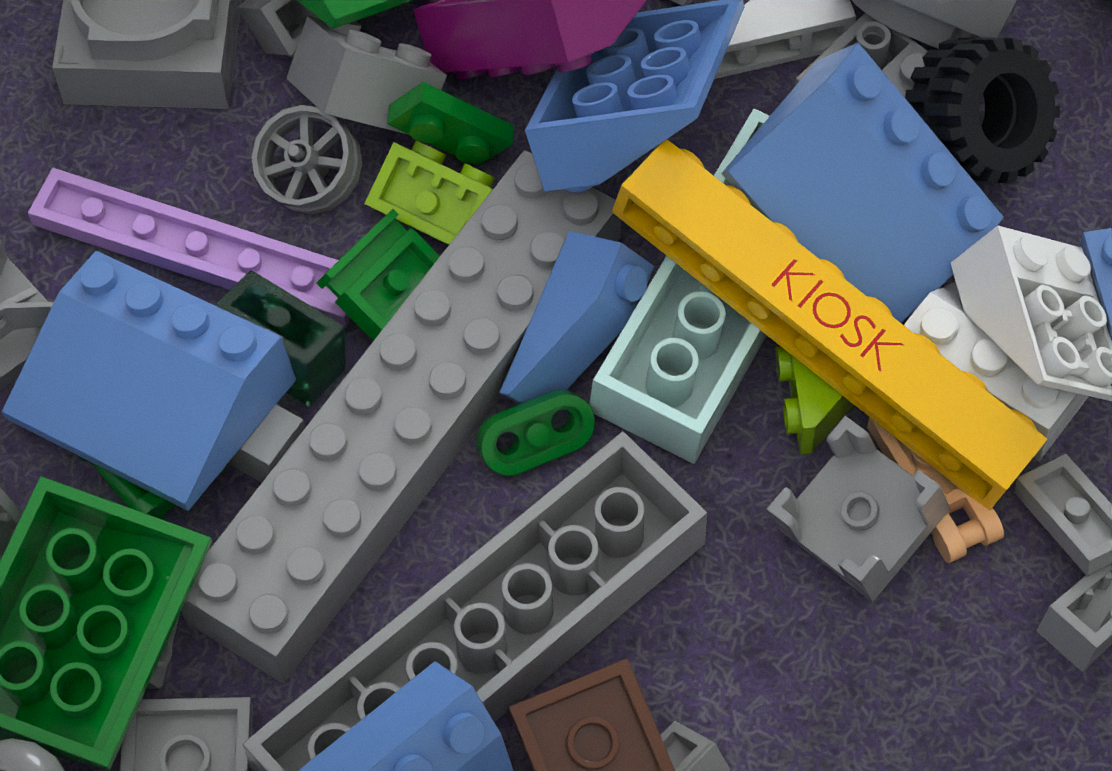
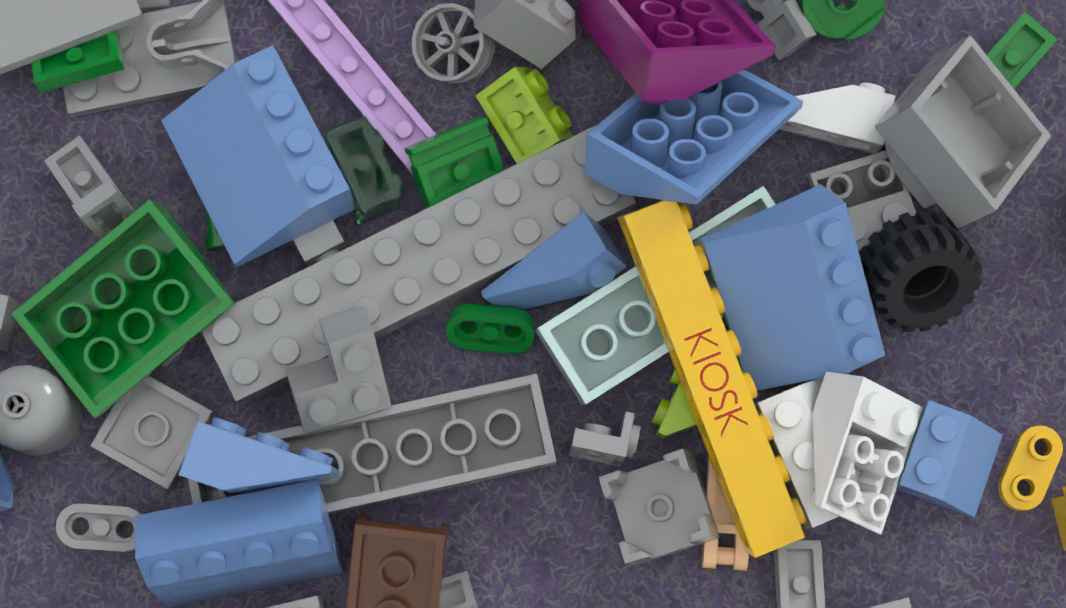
camera: 25 degrees right, 20 degrees up
(330, 681) = (241, 465): none -> medium blue slope
(403, 549) = (347, 381): none -> light grey brick
(450, 124) = (549, 68): green plate -> none
(747, 472) = (598, 445): none -> light grey bracket

